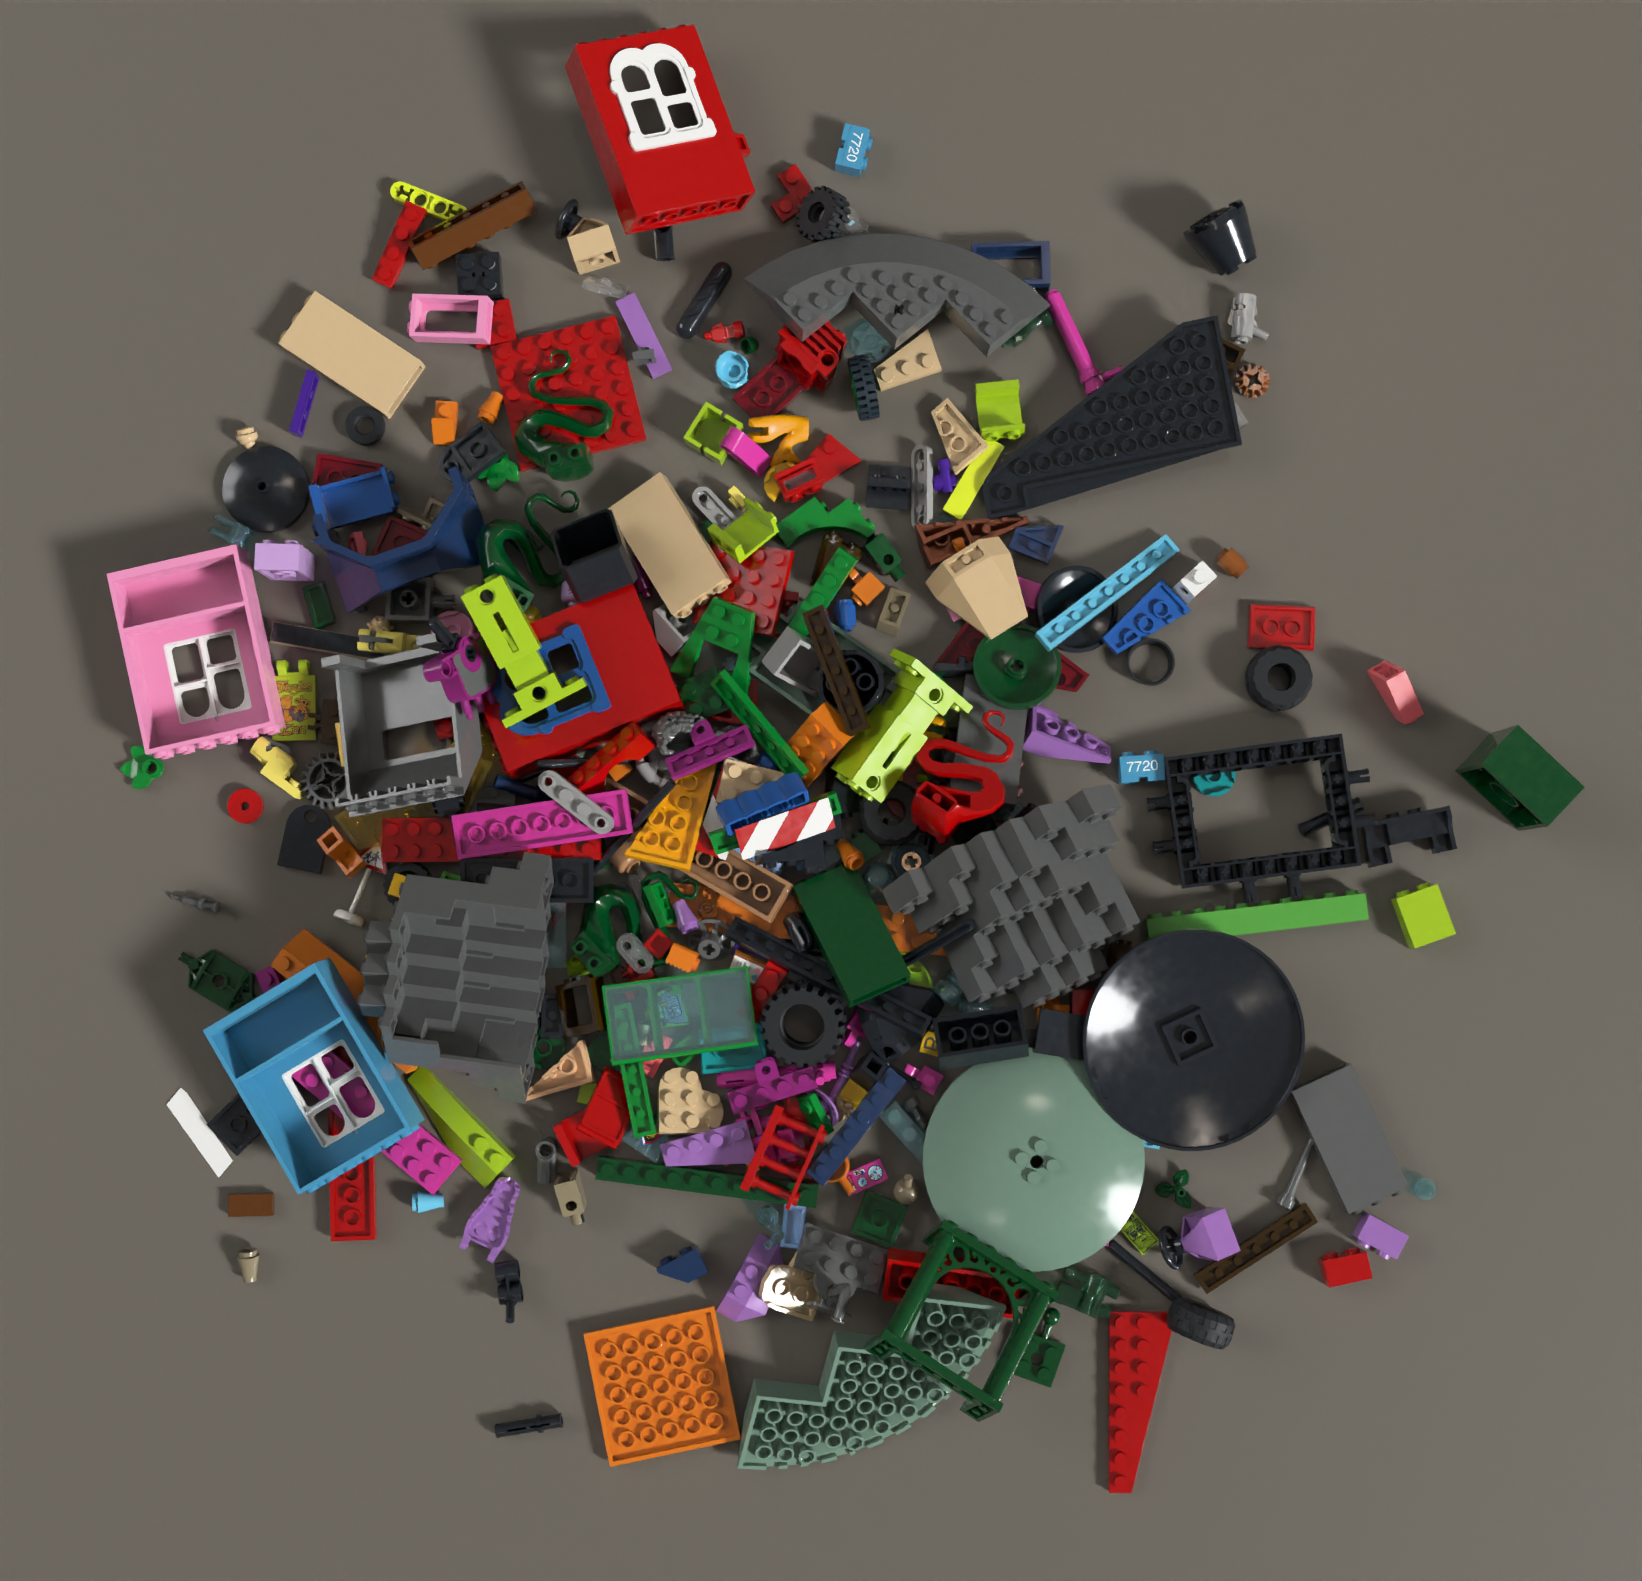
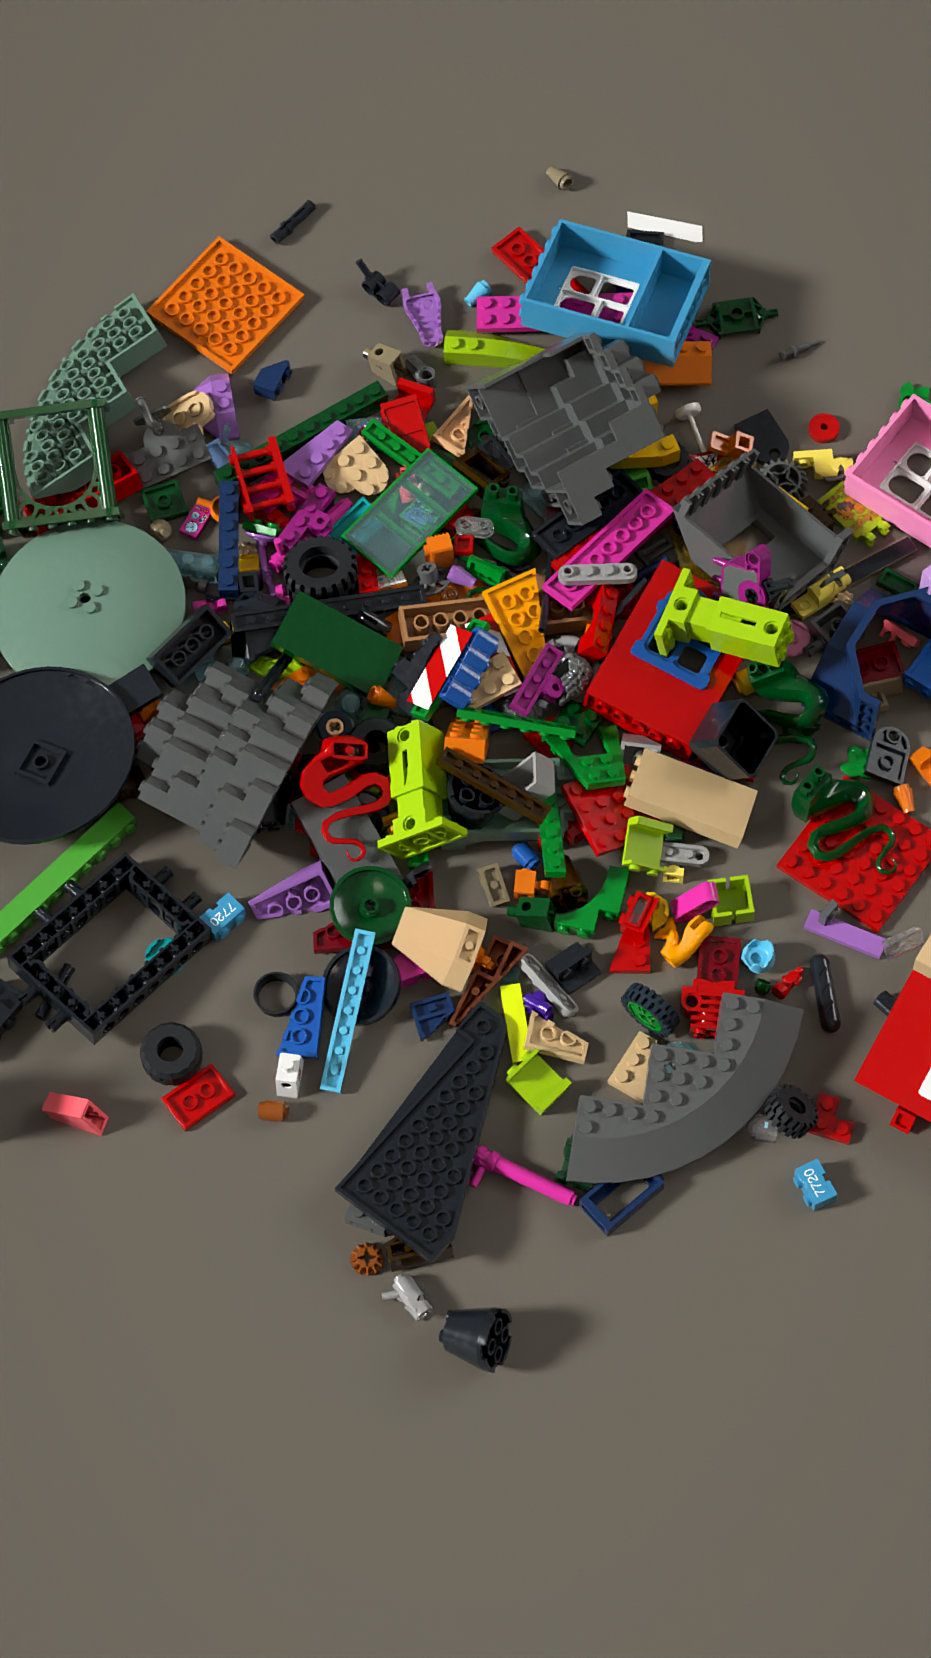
camera: 140 degrees right, 20 degrees down
(250, 1204) = (591, 210): reddish brown tile -> none

